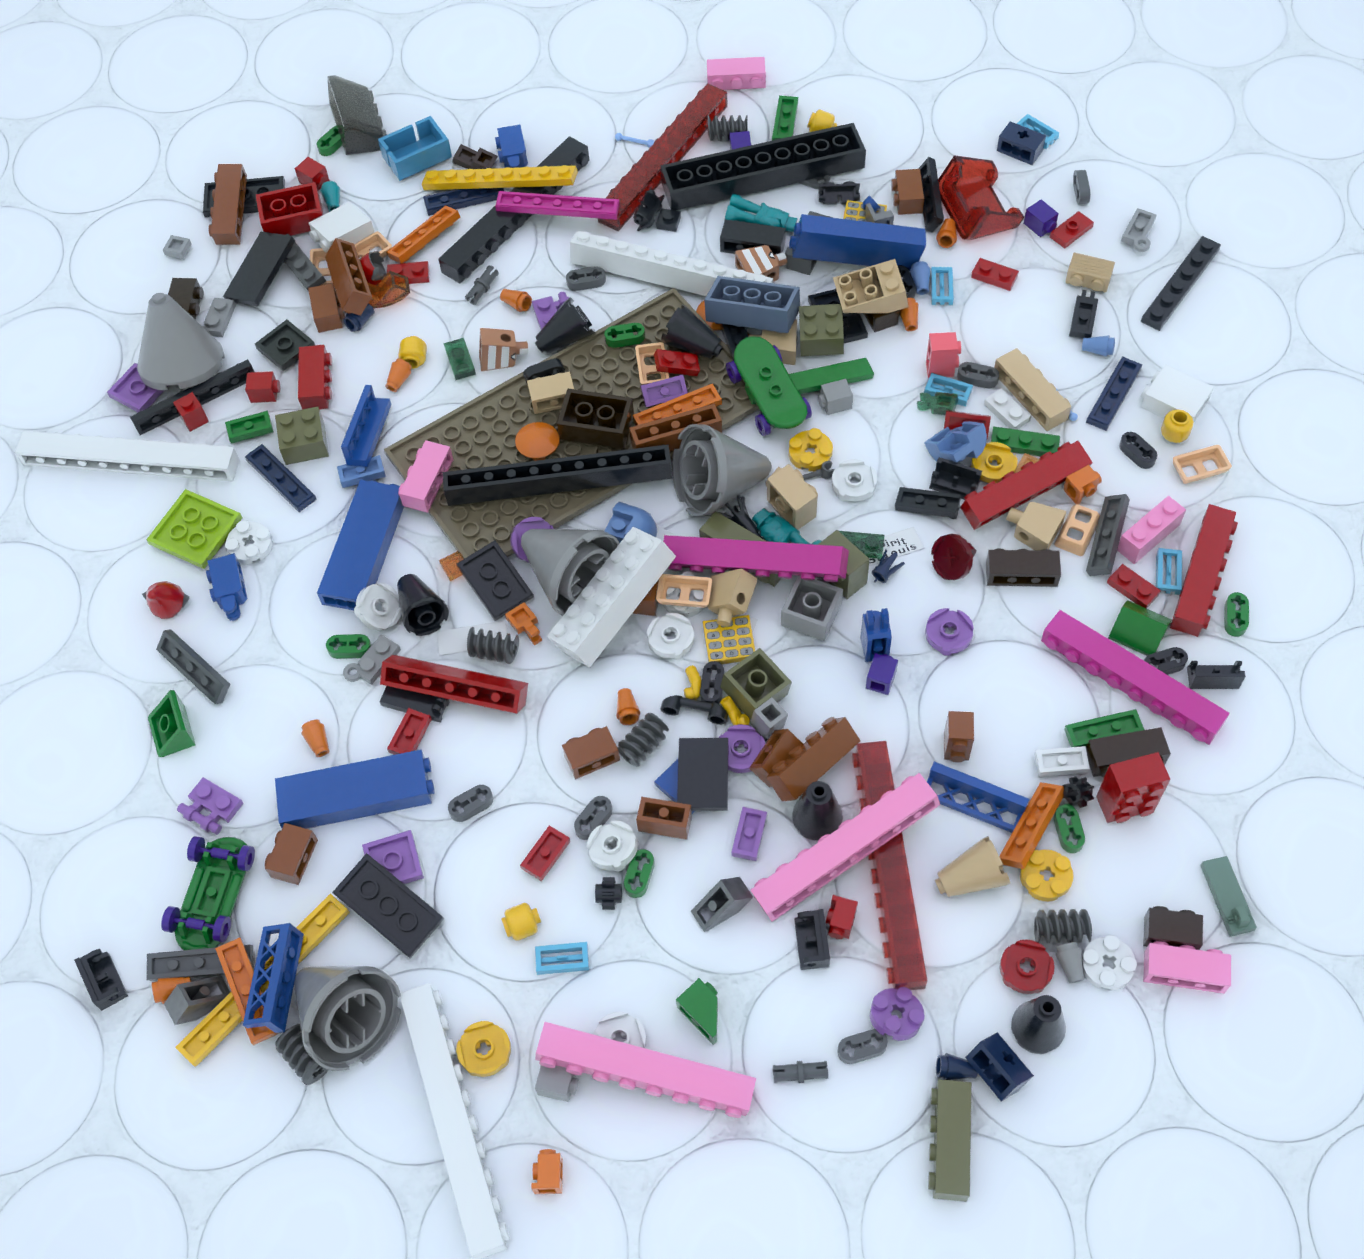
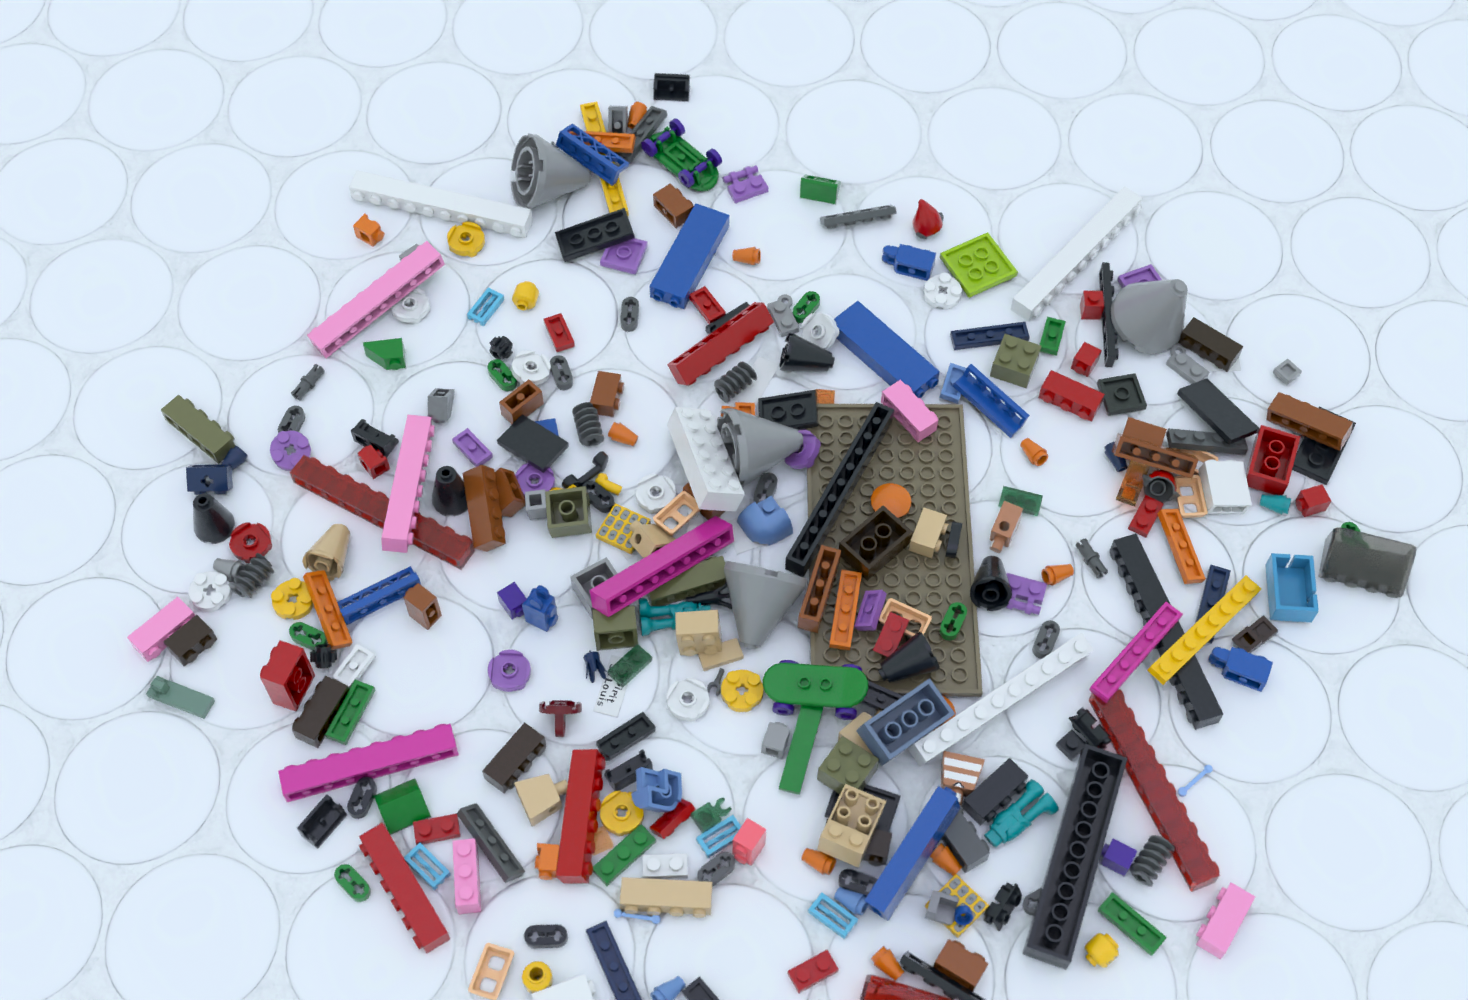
camera: 120 degrees right, 0 degrees up
(413, 351) = (1051, 472): yellow head -> none
(1088, 529) = (508, 831): light nougat piece -> none

